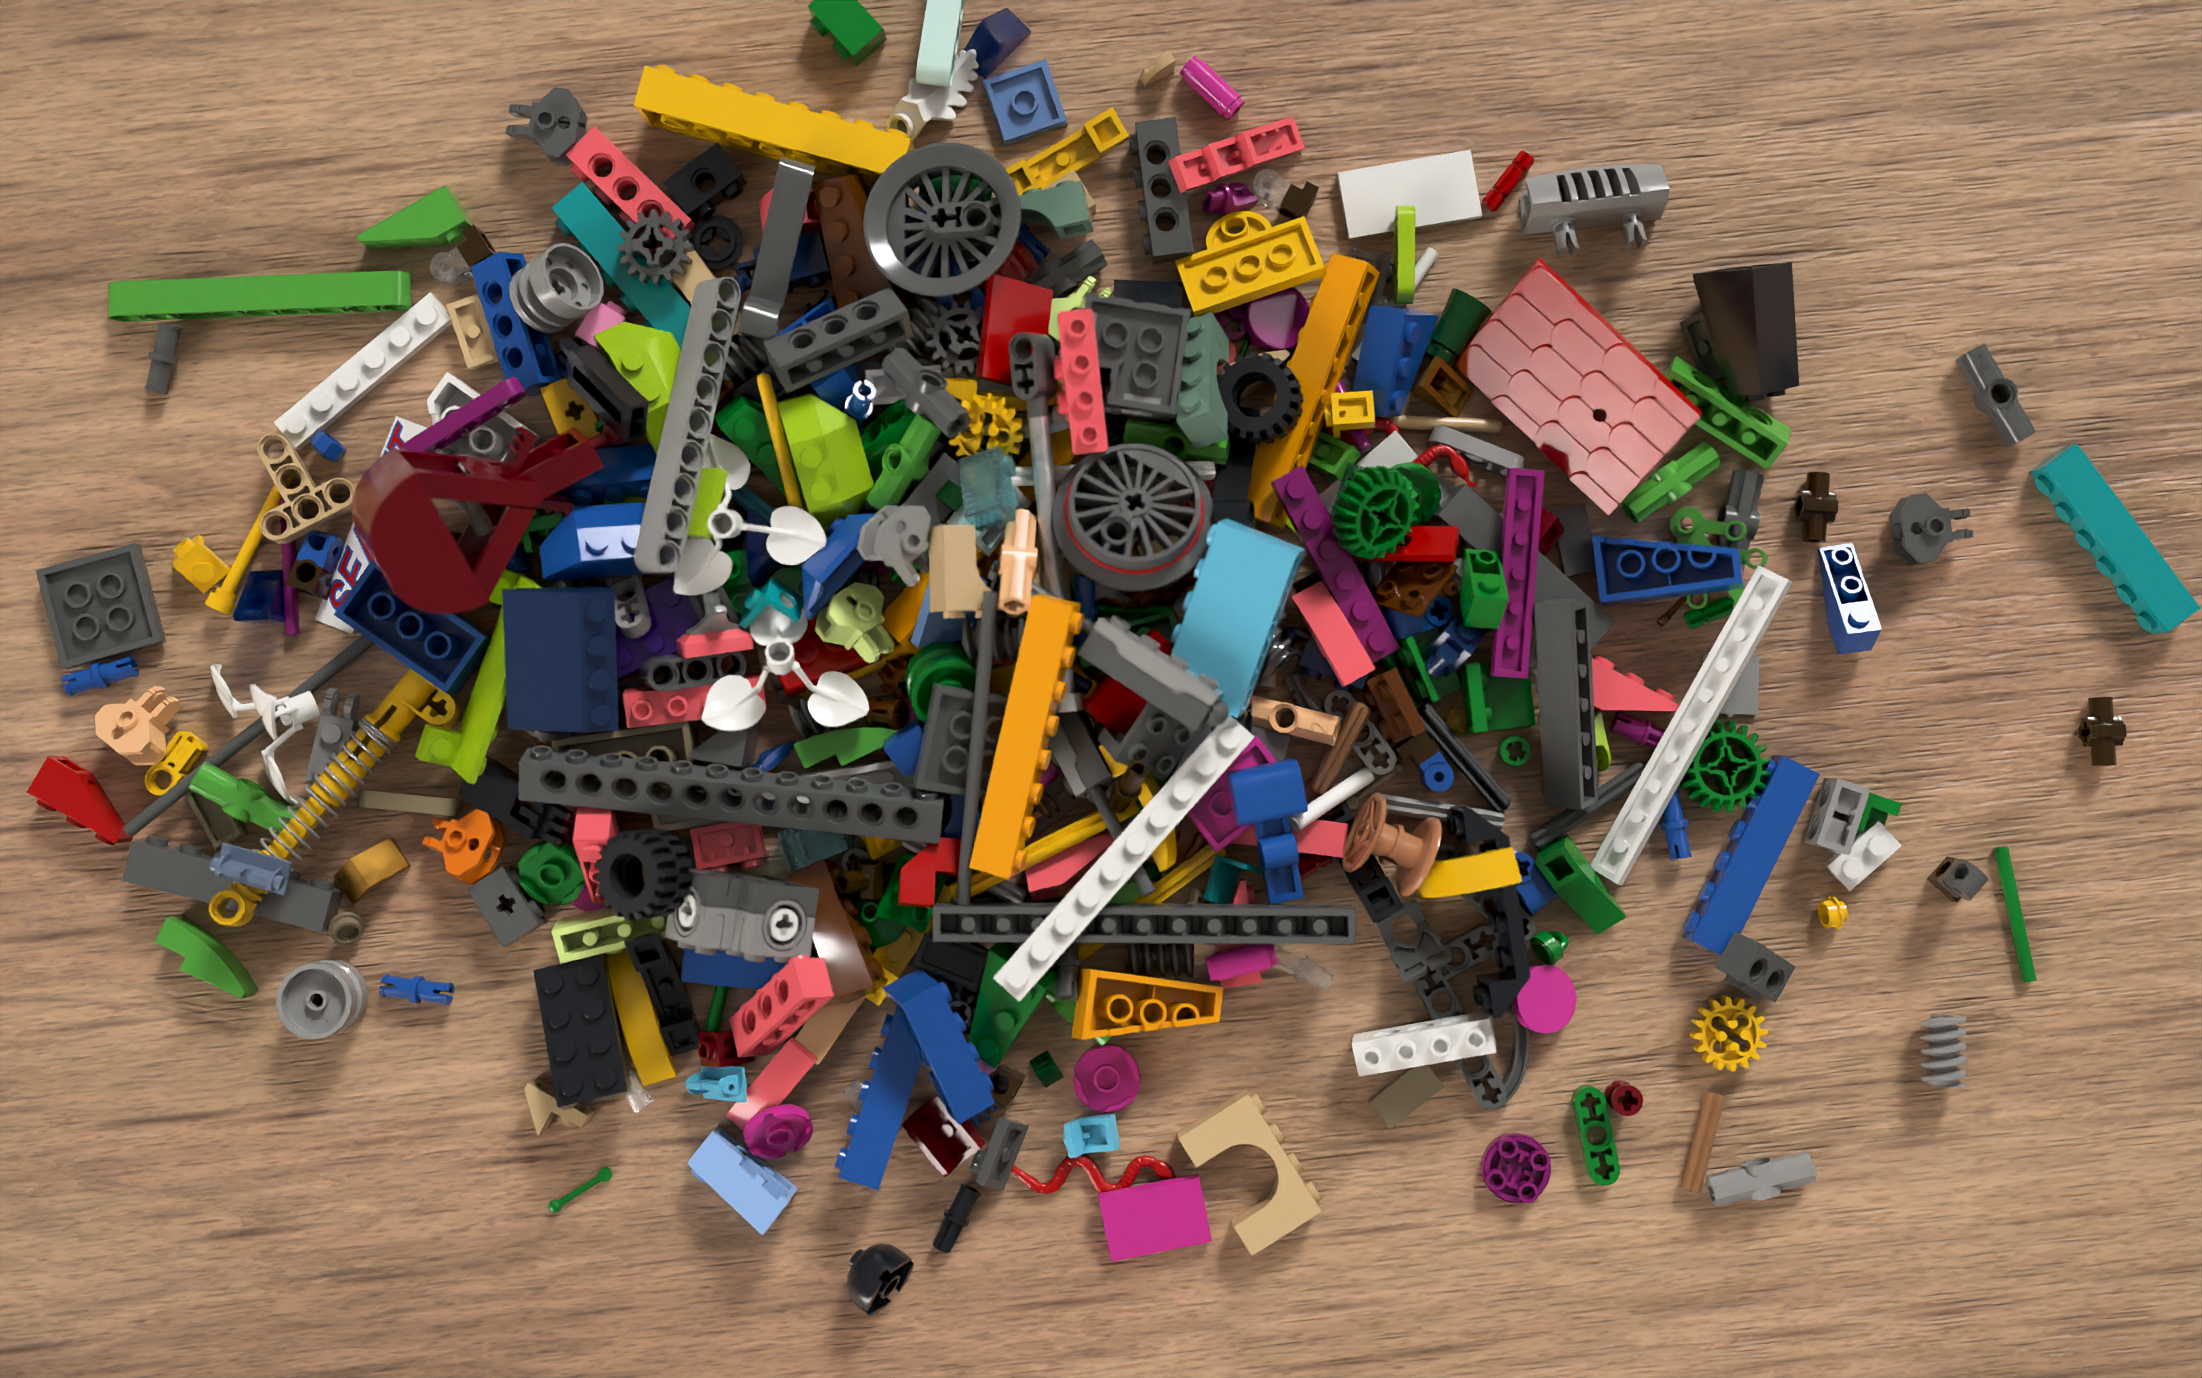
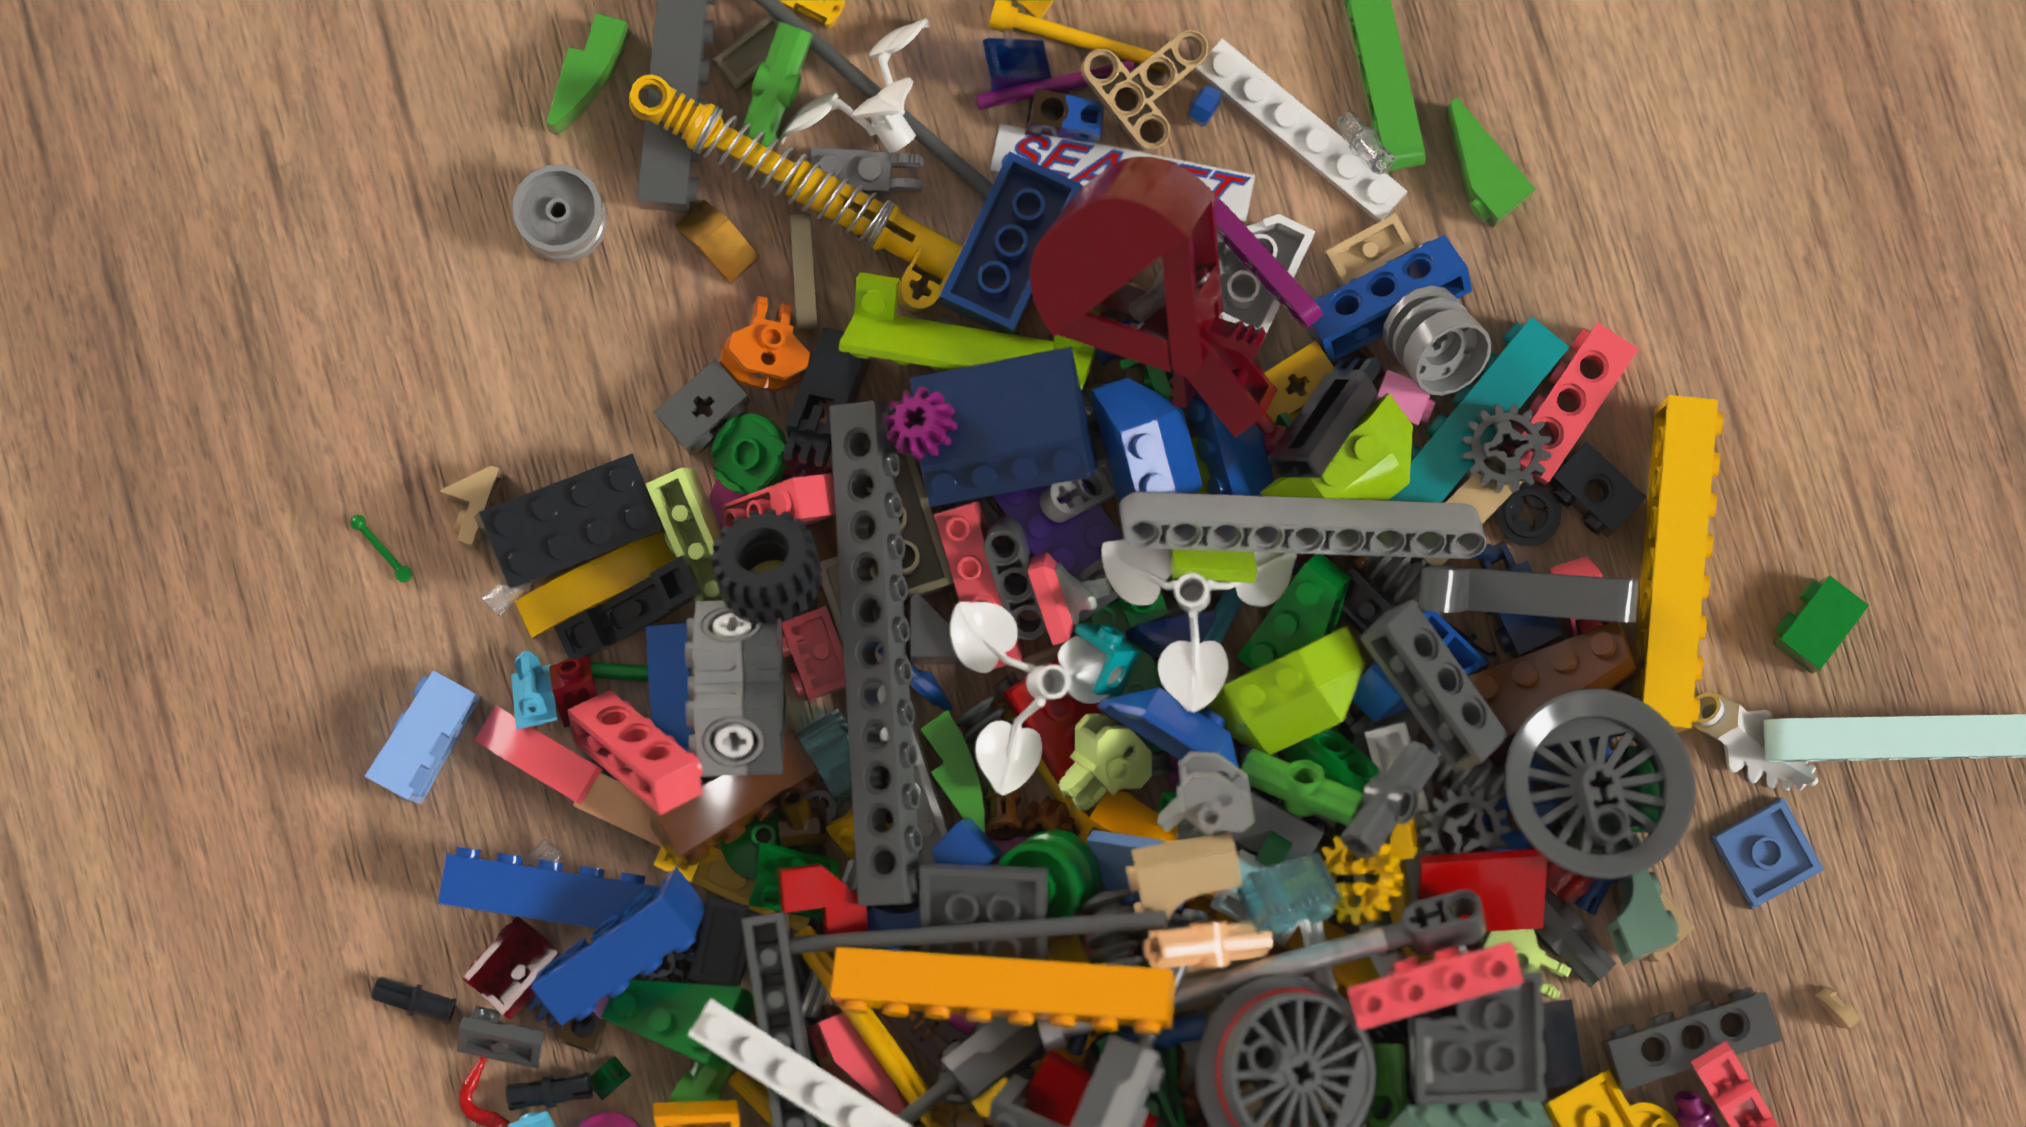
camera: 80 degrees right, 5 degrees down
(252, 868) = (700, 117): sand blue hinge -> none
(346, 928) = (645, 225): dark tan plate -> none
(382, 318) = (1365, 143): none -> clear axle
(416, 989) = (586, 318): blue pin -> none
(455, 266) = (1443, 216): leg -> none
(532, 721) = (922, 407): none -> magenta gear
(554, 124) = (1633, 296): dark grey hinge -> none
(778, 1131) = (486, 771): dark pink tile -> none
(779, 440) = (1302, 636): yellow piece -> none
(859, 403) = (1363, 722): blue pin -> none
(876, 1274) = (334, 917): black cylinder -> none
(996, 40) = (1835, 806): clear blue slope -> none
(1048, 1119) = (549, 1091): none -> black pin
(1067, 974) = (726, 1085): dark grey pin -> none
(1075, 153) = (1713, 918): yellow slope -> none
(1211, 87) = (1828, 1078): dark pink piece -> none

